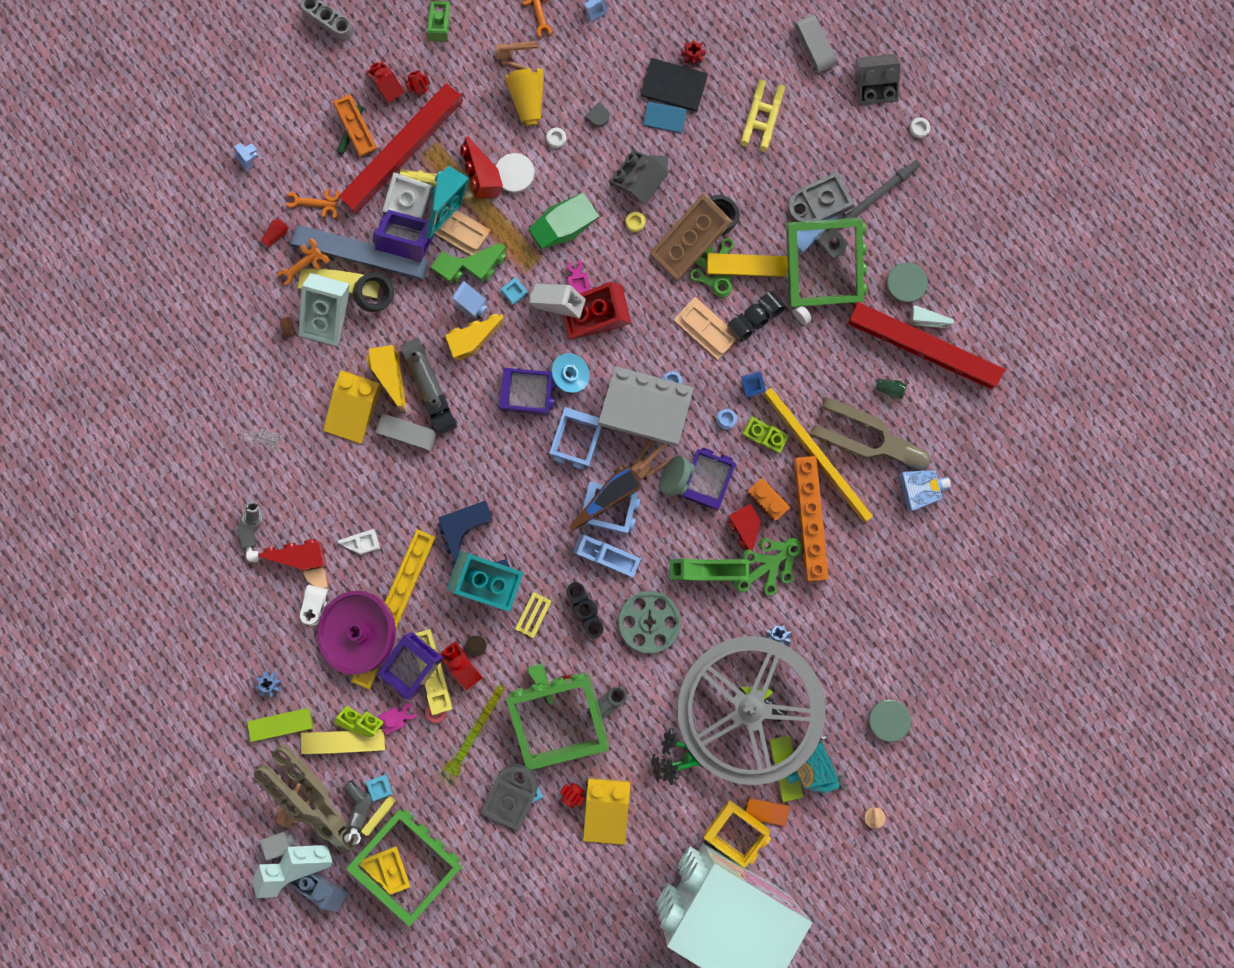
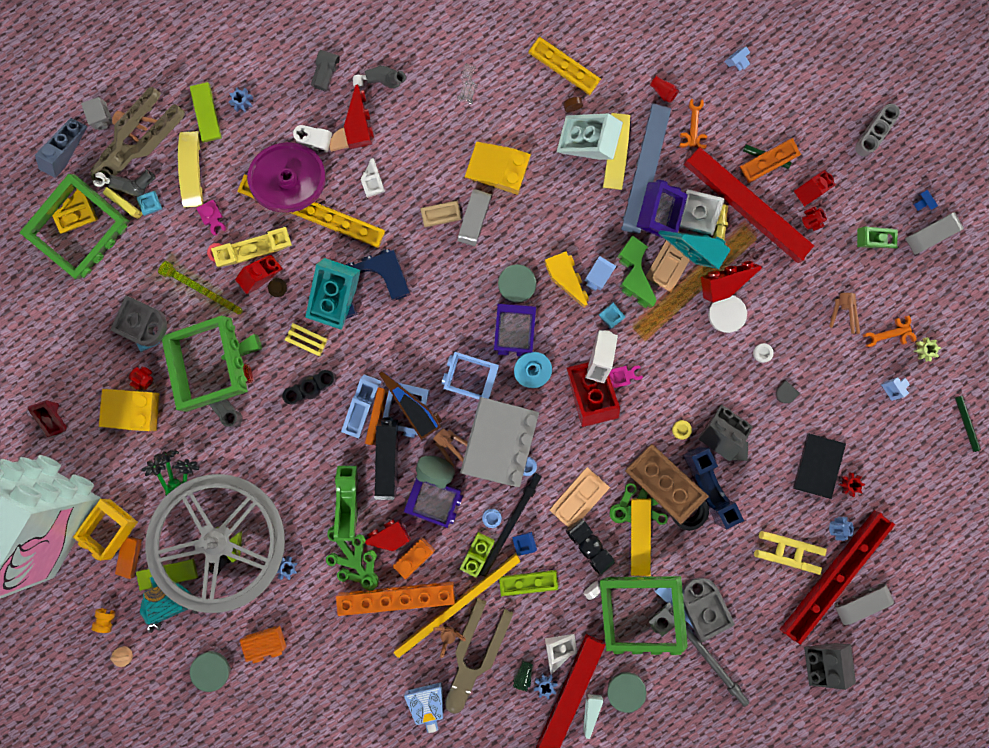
camera: 90 degrees right, 5 degrees up
(235, 591) = (325, 67): none -> dark grey piece
(244, 336) = (564, 65): none -> yellow tile
(294, 865) = (77, 128): light aqua arch -> none
(313, 254) = (642, 125): orange bar -> none
(360, 724) = (204, 183): lime slope -> none
(386, 285) = (607, 168): black tyre -> none
(386, 365) = (530, 198): yellow slope -> none
(400, 469) = (441, 214): none -> tan tile
(409, 665) = (256, 227): dark purple window -> none
(428, 386) = (514, 239): dark grey piece -> none
(478, 388) = (517, 283): none -> sand green tile
(527, 93) = (805, 323): yellow cone -> none
(563, 221) = (680, 361): piece -> none
(615, 898) = (47, 417): none -> dark red slope
(617, 537) = (377, 413): none -> orange tile
(657, 628) = (306, 440): sand green wedge -> none
(662, 524) = (386, 459): none -> black slope
(665, 117) = (786, 457): dark azure slope -> none
(672, 202) = (701, 465): none -> dark blue arch
(698, 379) = (529, 491): none -> black bar
(738, 64) = (841, 528): none -> medium blue gear
(788, 69) = (837, 577): none -> red tile
(794, 382) = (528, 583): none -> lime tile
(837, 837) = (103, 621): none -> light orange wheel
(850, 465) = (448, 636): none -> nougat plant
(860, 662) = (263, 643): none -> orange brick
(864, 351) = (559, 650): none -> white slope
(906, 367) = (547, 691): none -> medium blue gear
(919, 128) = (781, 706): white tile -> none

